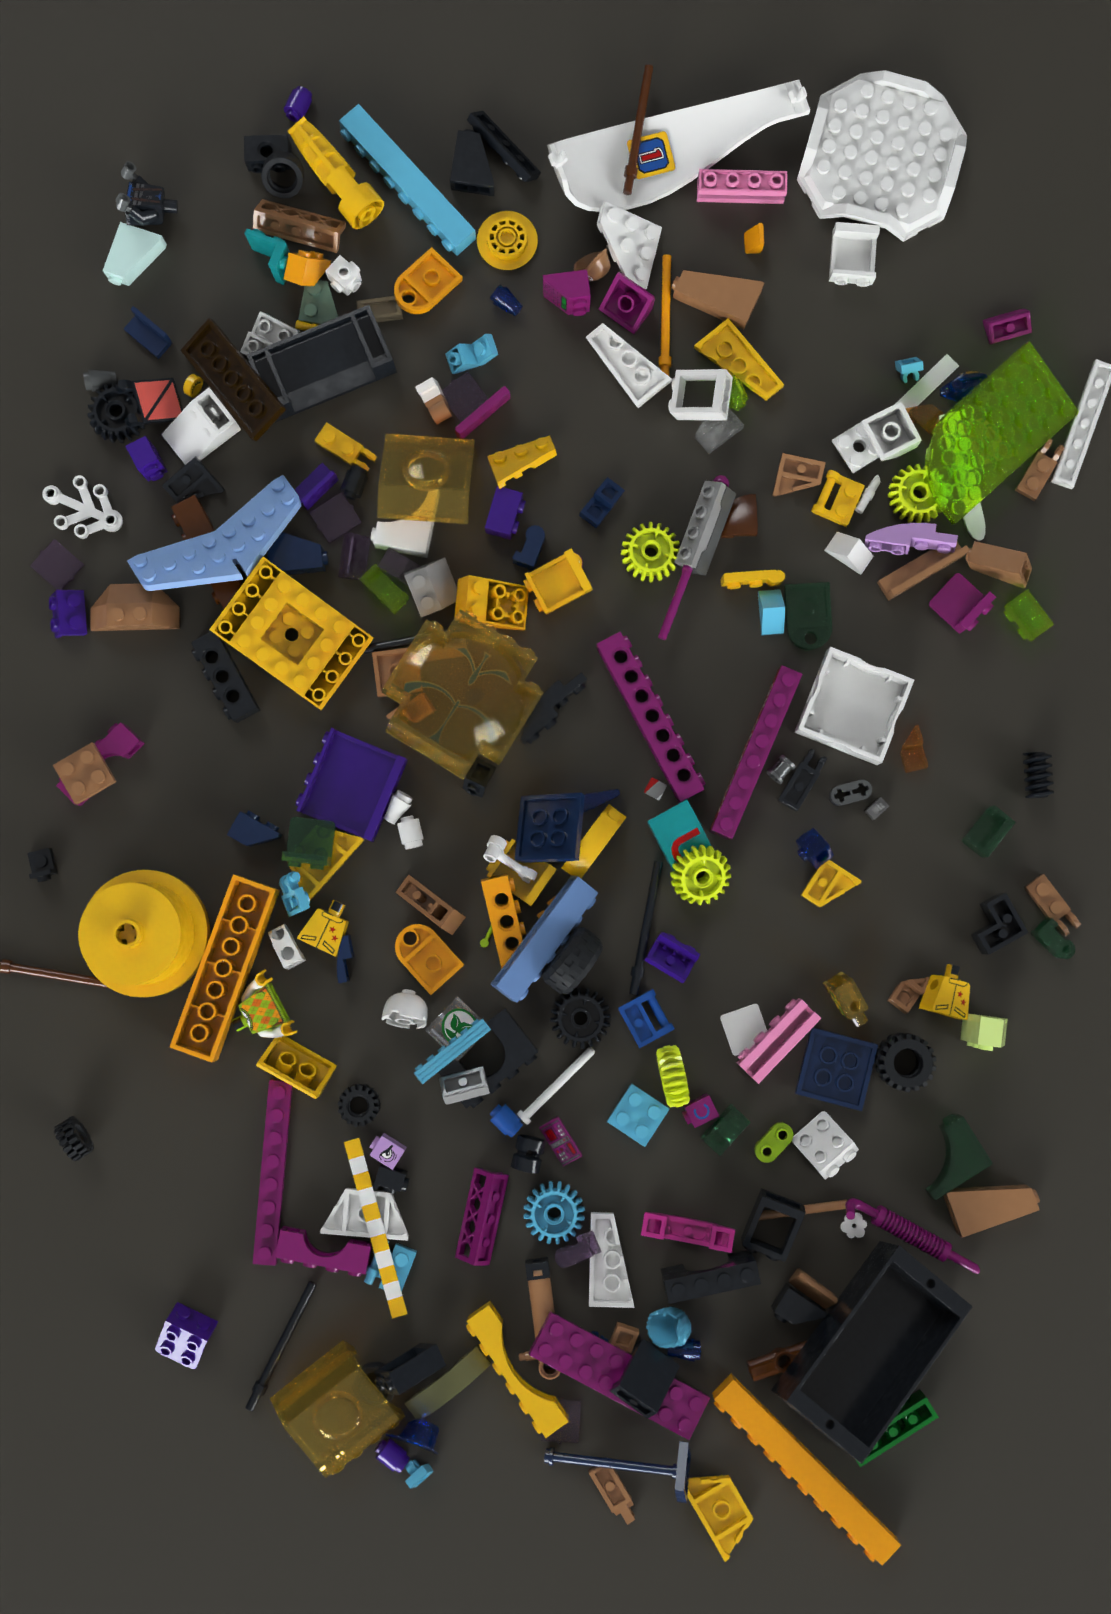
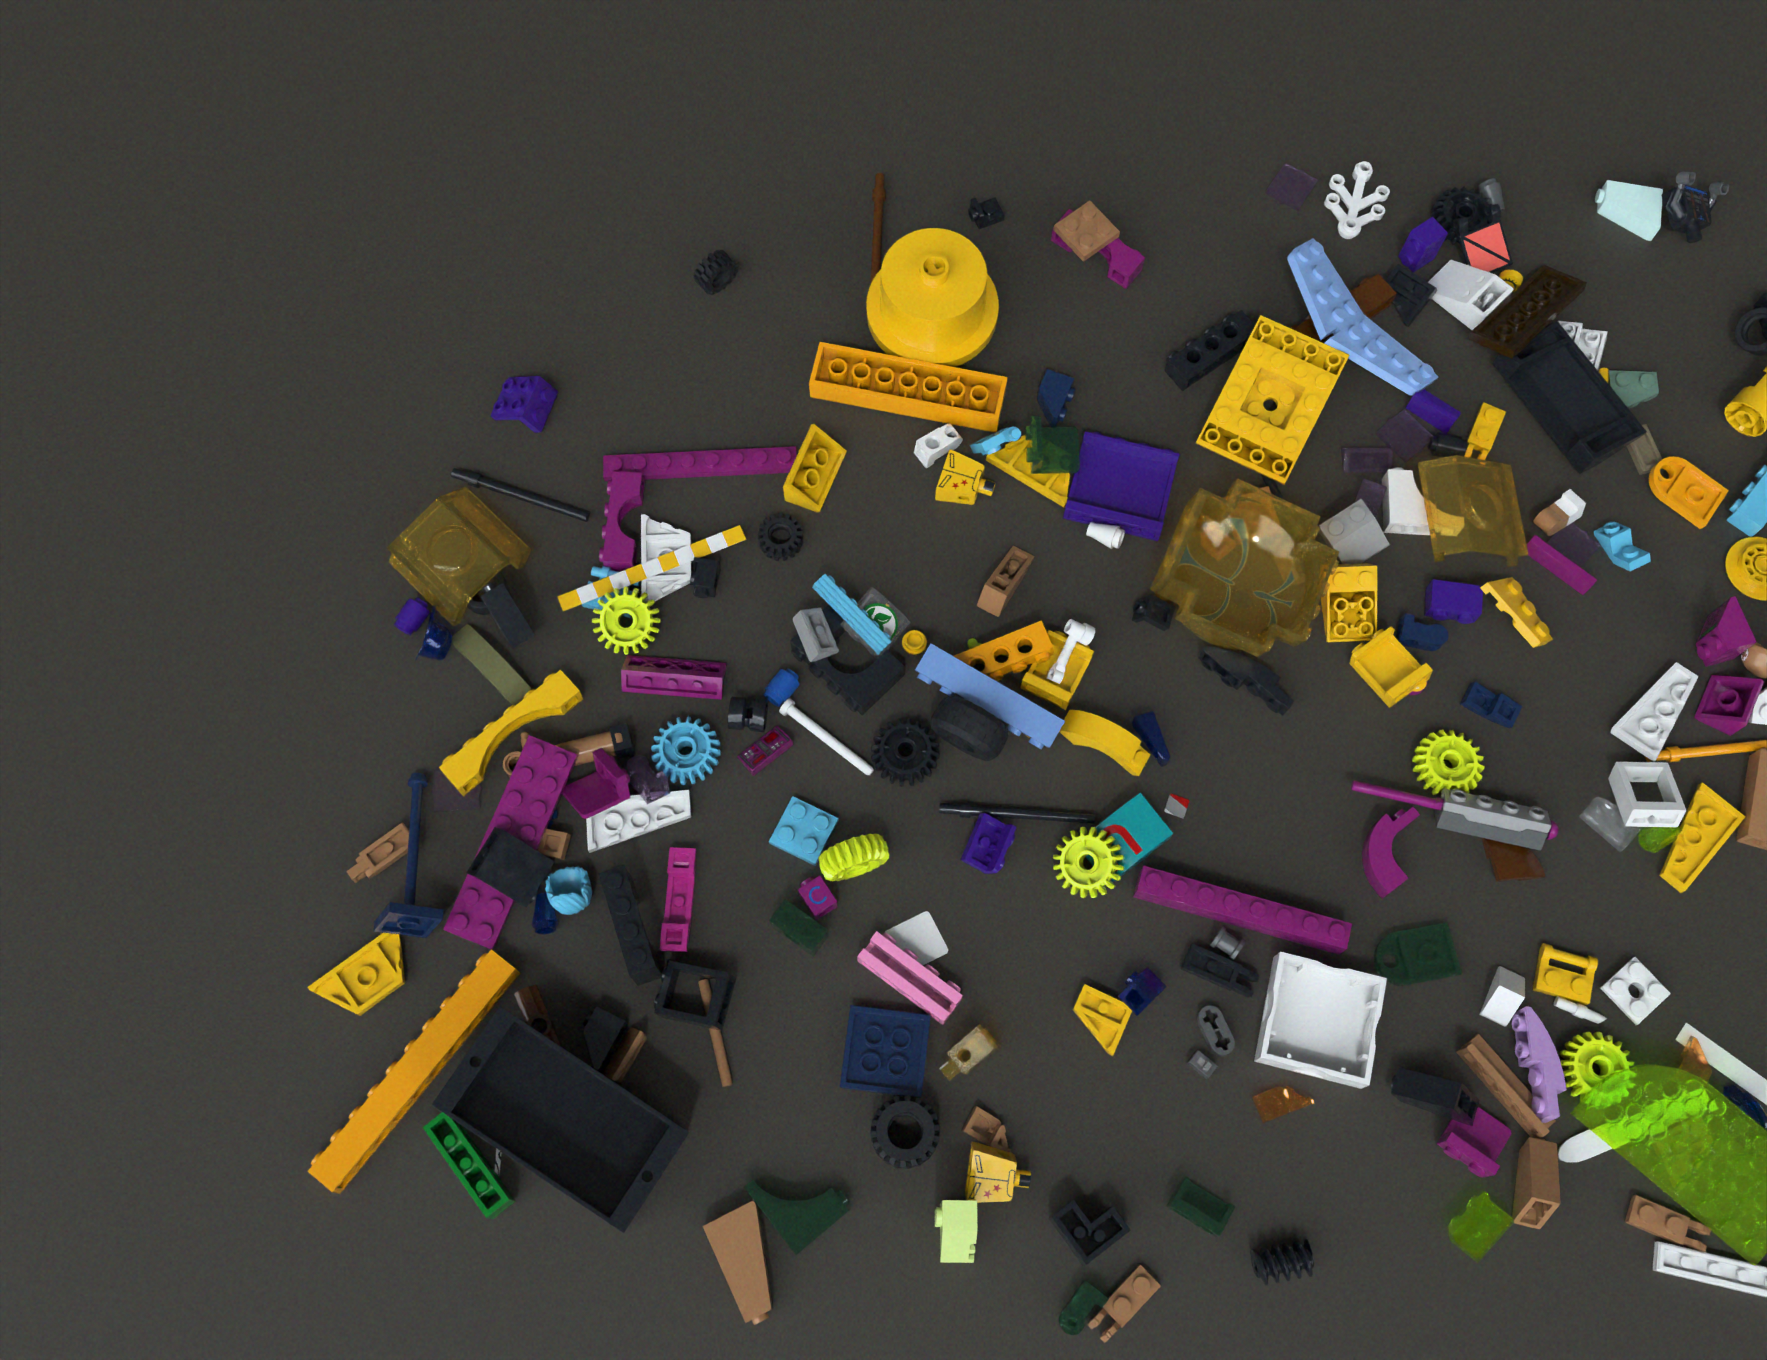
camera: 85 degrees right, 15 degrees down
(68, 613) = (1246, 201): dark purple bracket -> none
(133, 609) = (1263, 260): medium nougat wedge -> none
(148, 334) = (1551, 234): dark blue panel -> none
(263, 1010) = (869, 429): torso -> none
(272, 247) = (1671, 336): teal bracket -> none
(297, 555) = (1355, 399): dark blue slope -> none
(298, 225) = (1710, 357): medium nougat fence -> none
(305, 267) = (1667, 364): light orange slope -> none
(344, 276) = (1670, 405): white brick -> none
(345, 951) = (940, 500): dark blue slope -> none
(384, 589) = (1340, 489): clear neon green panel -> none
(387, 1150) = (735, 570): lavender brick -> none
(405, 1009) = (888, 567): white cylinder -> none
(410, 832) = (1080, 550): white brick -> none
(417, 1472) = (393, 644): medium azure tile -> none
(428, 958) = (946, 587): light orange tile -> none
(436, 1266) = (611, 615): none -> neon yellow gear
(477, 995) = (914, 642): none -> yellow plate
(506, 300) = (1692, 573): clear blue cone -> none
(549, 828) = (1113, 687): dark blue plate -> none
(582, 1295) = (599, 789): none -> magenta bracket
(621, 644) = (1325, 731): magenta brick -> none
(639, 1022) = (909, 817): blue plate -> none
(719, 628) = (1377, 854): none -> magenta arch
(753, 578) = (1445, 883): yellow hinge -> none
(771, 612) = (1409, 910): medium azure slope -> none
(773, 1142) = (789, 989): lime plate -> none
(797, 474) = (1581, 920): medium nougat wing -> none
(825, 1145) = (793, 1049): white bracket -> none
(857, 1230) = (701, 1088): white plant -> none
(892, 432) = (1663, 1023): white slope -> none
(908, 366) = (1749, 1040): medium azure tile -> none
(909, 1233) = (700, 1163): magenta piece -> none
(926, 628) = (1435, 1095): none -> black slope

